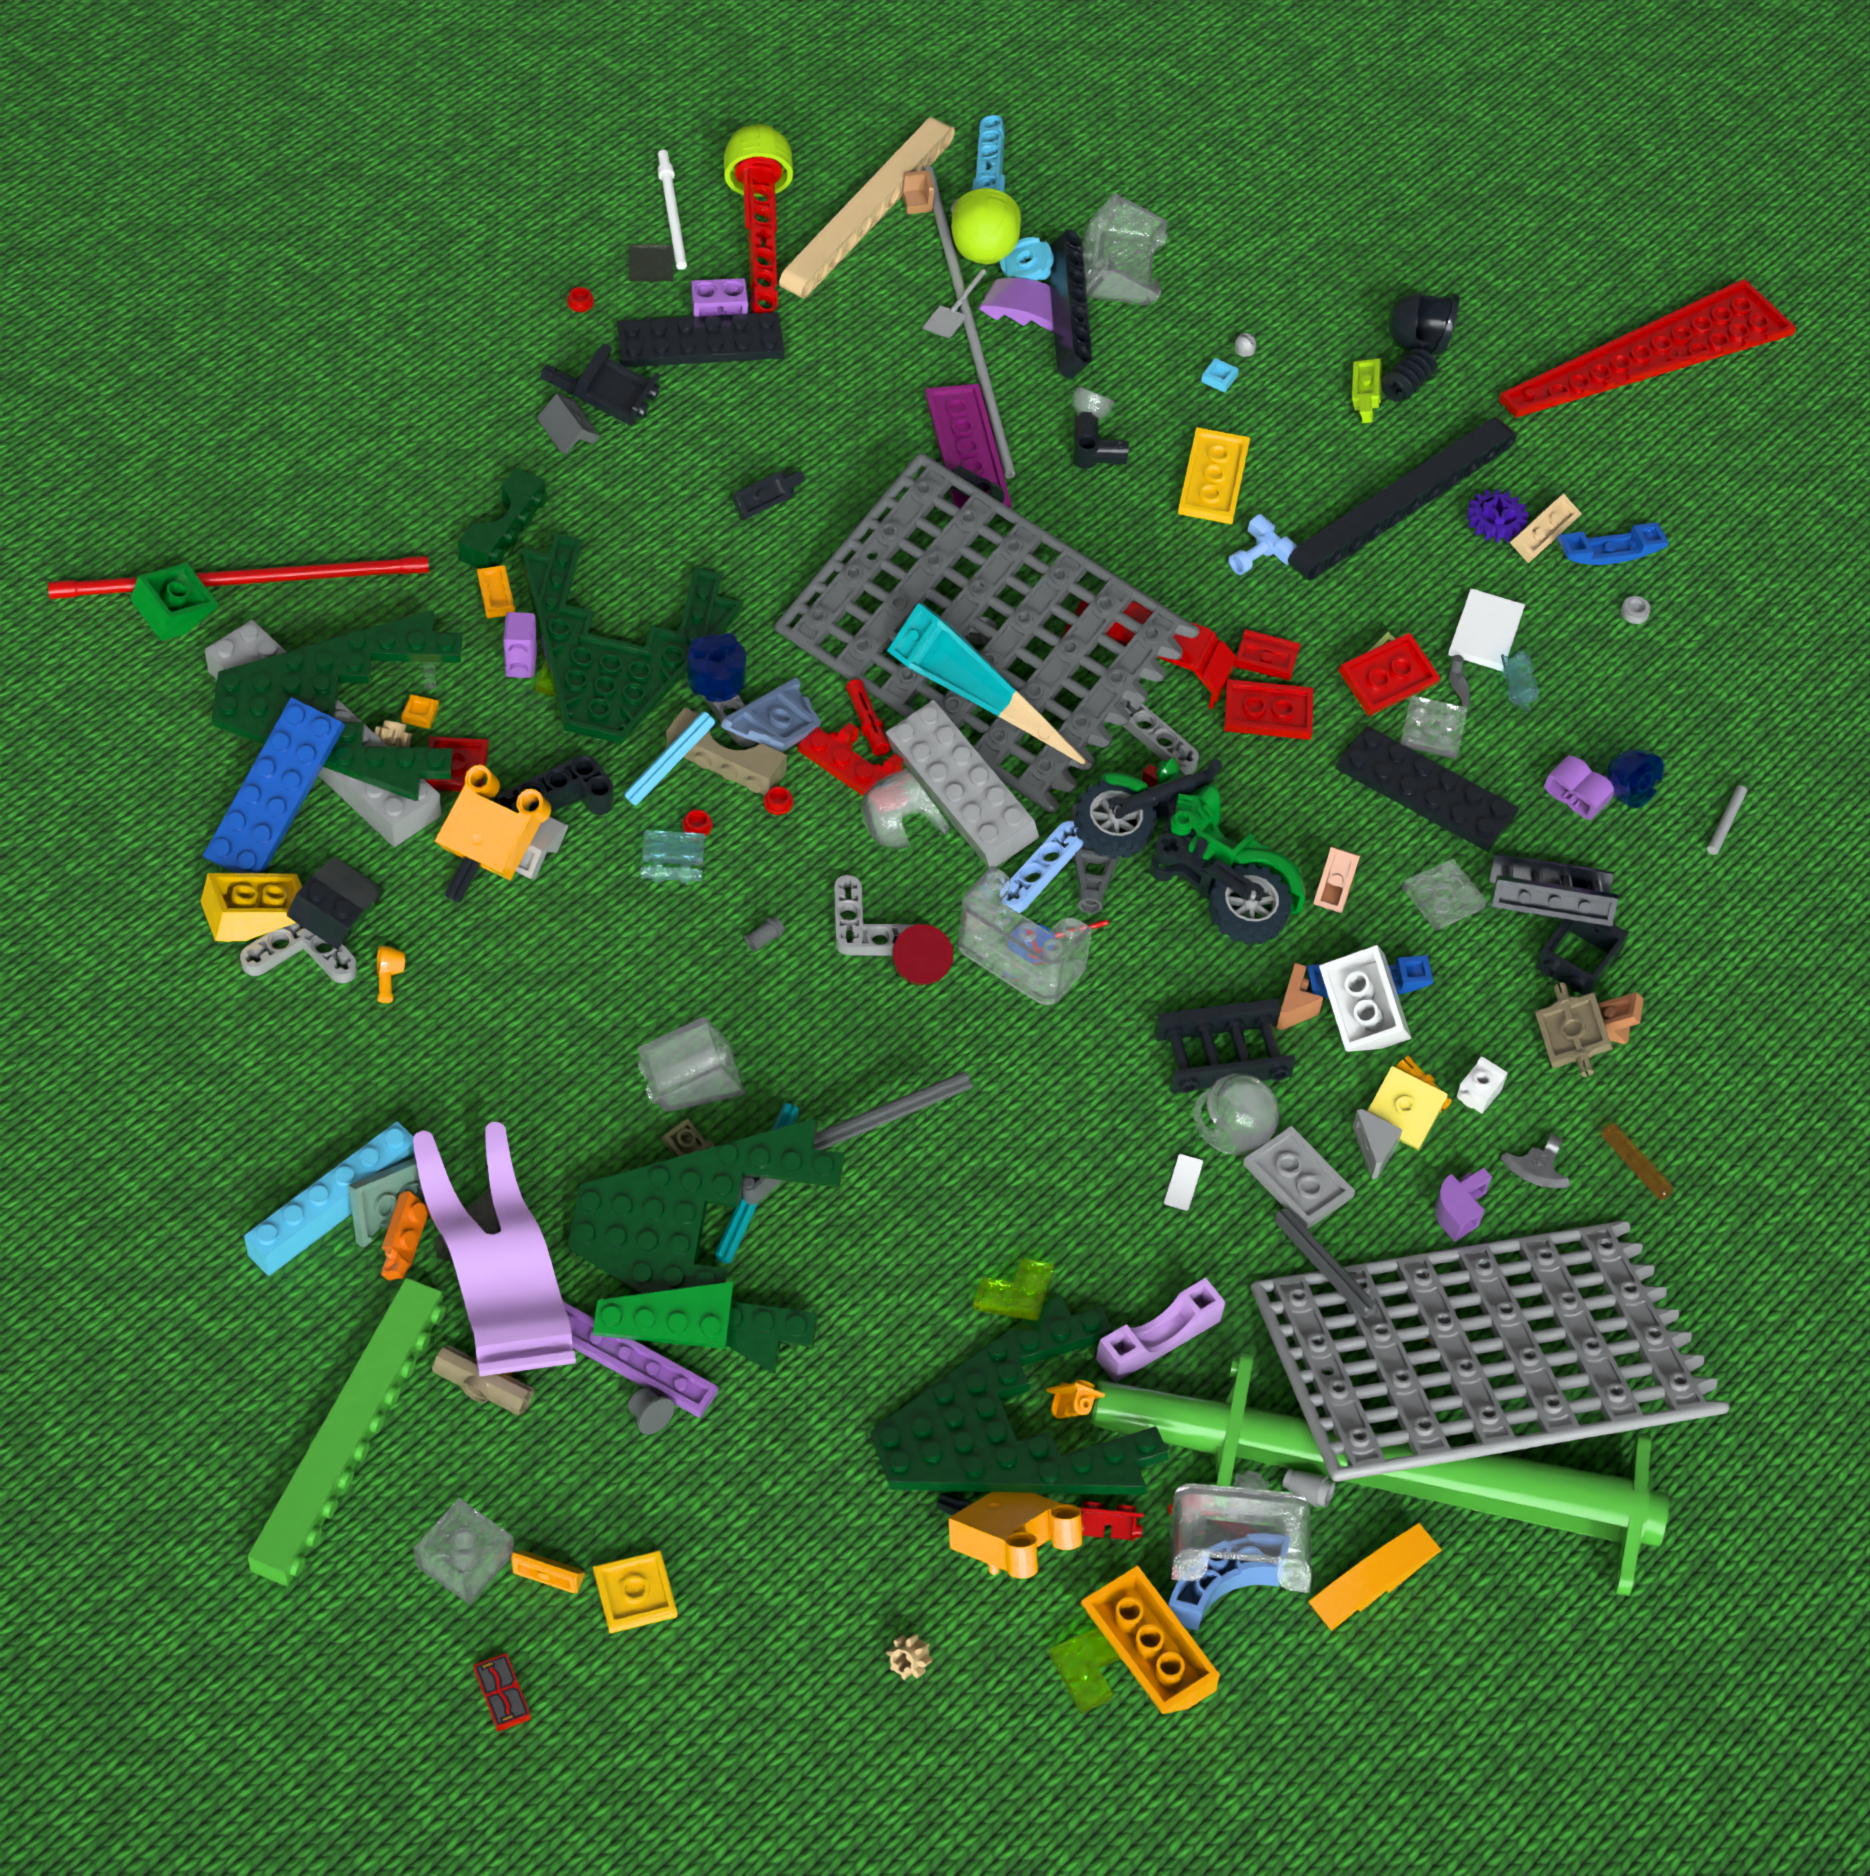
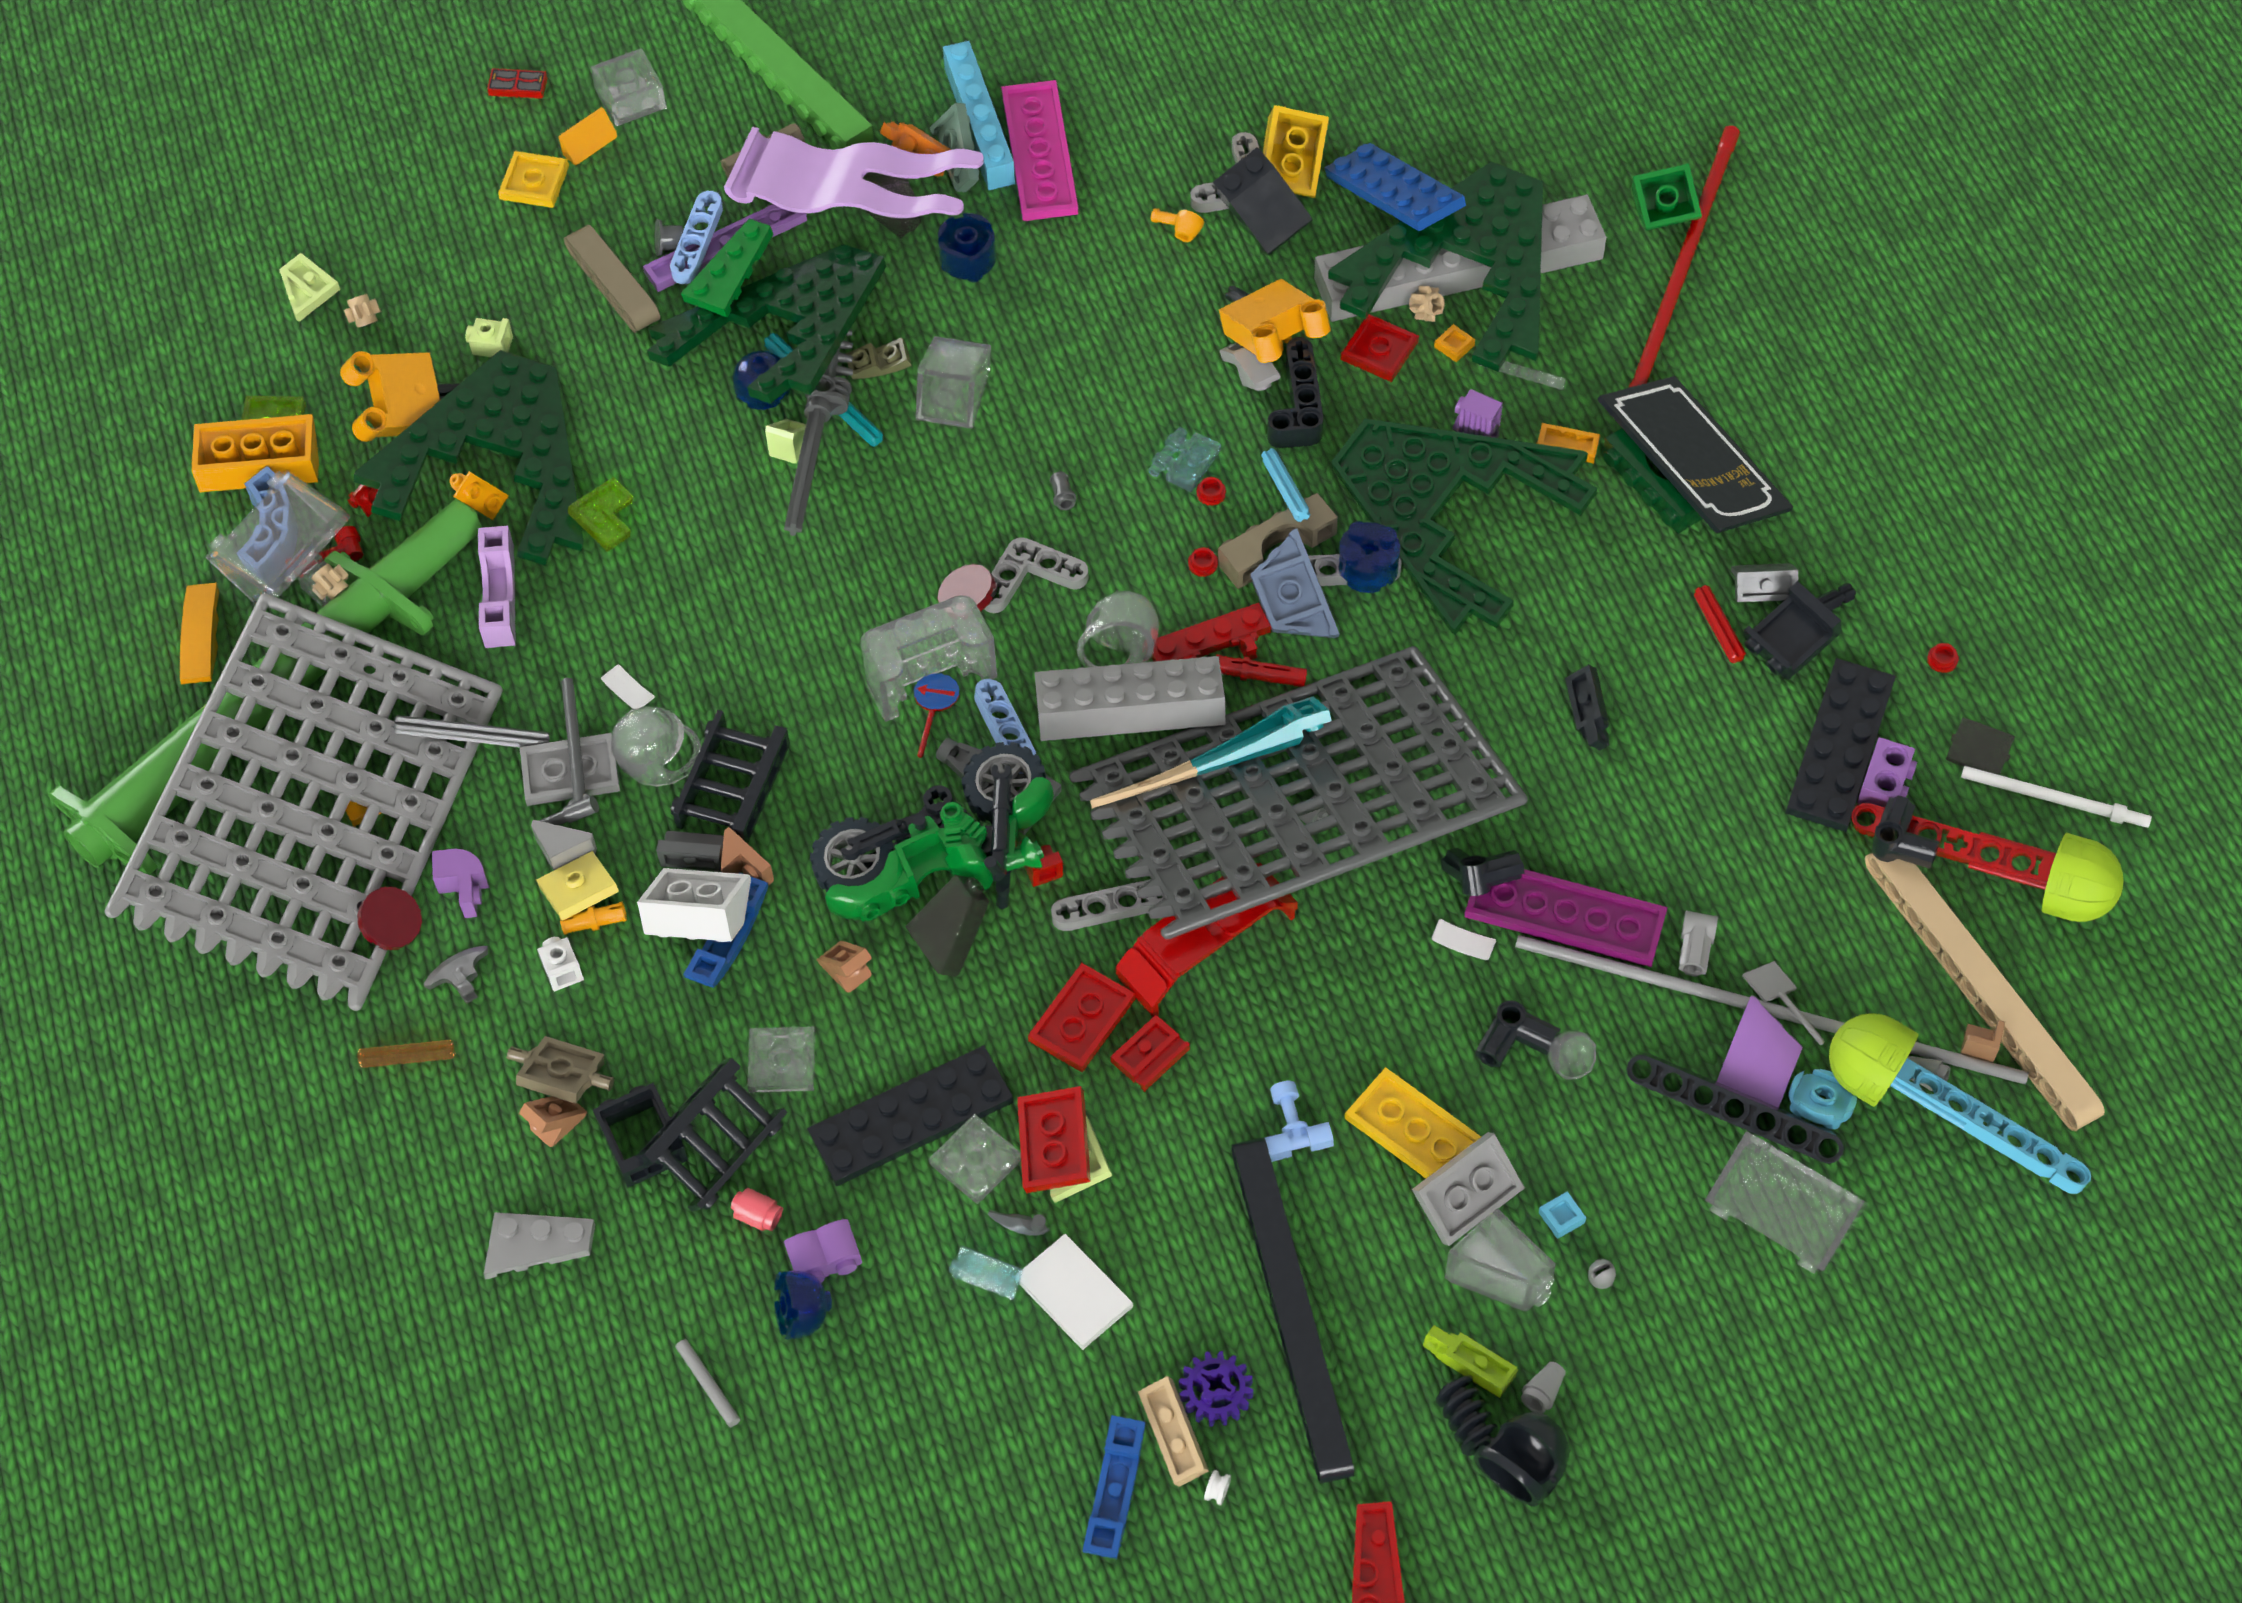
camera: 125 degrees right, 5 degrees up
(328, 1137) = (1039, 150): none -> dark pink plate
(465, 497) = (1695, 454): none -> black piece
(526, 1121) = (967, 247): none -> clear blue brick
(629, 441) = (1719, 624): none -> red axle
(639, 1367) = (698, 237): none -> light blue beam
(728, 1439) = (612, 278): none -> dark tan beam
(778, 1238) = (748, 370): none -> clear blue cylinder
(789, 266) = (1902, 844): none -> black piece
(848, 1185) = (785, 439): none -> yellowish green slope
(860, 1505) = (489, 337): none -> yellowish green brick
(905, 1743) = (306, 285): none -> yellowish green wing
(933, 368) = (1697, 937): none -> light grey piece
(1029, 505) = (1463, 940): none -> white sticker
(1243, 424) = (1468, 1188): none -> light grey plate
(1260, 812) = (950, 924): none -> clear smoke slope
(1260, 1461) = (329, 581): none -> tan gear
(1291, 385) = (1501, 1264): none -> clear slope
(1310, 1044) = (691, 851): none -> dark grey panel
(1333, 1139) = (581, 804): none -> dark grey bar
(1355, 345) = (1543, 1388): none -> light grey cone
(1538, 1231) = (389, 918): none -> dark red tile
(1564, 485) = (1217, 1487): none -> white bush
(1580, 845) = (756, 1209): none -> coral brick
(1635, 609) = (1019, 1466): light grey tile -> none
(1713, 986) = (535, 1239): none -> light grey wing

